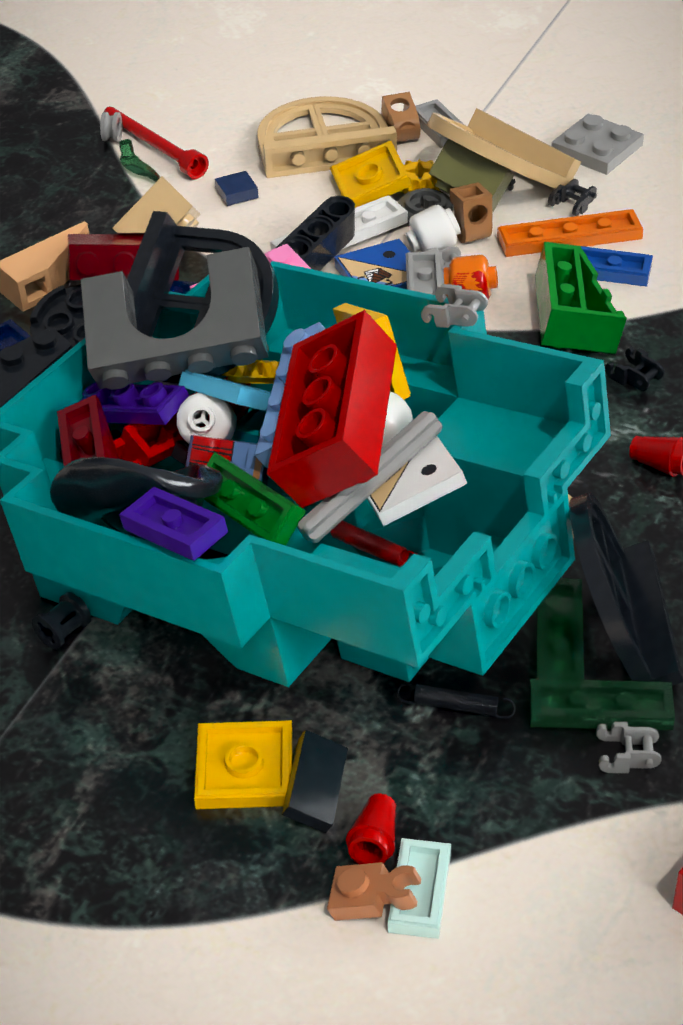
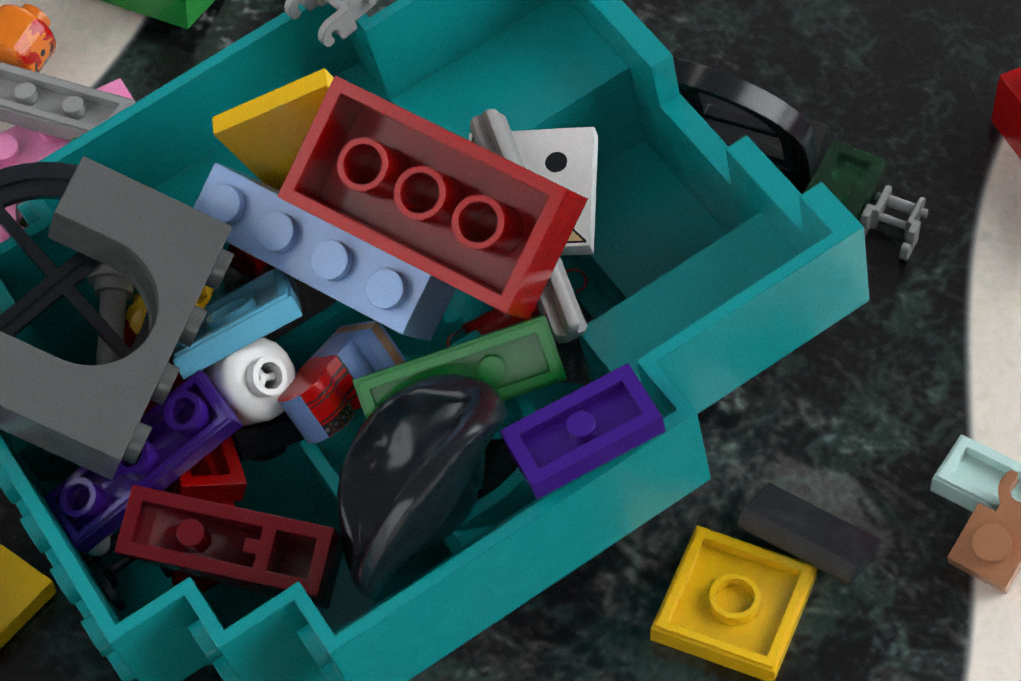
camera: 65 degrees left, 10 degrees up
(373, 831) = (913, 500): red cone -> none

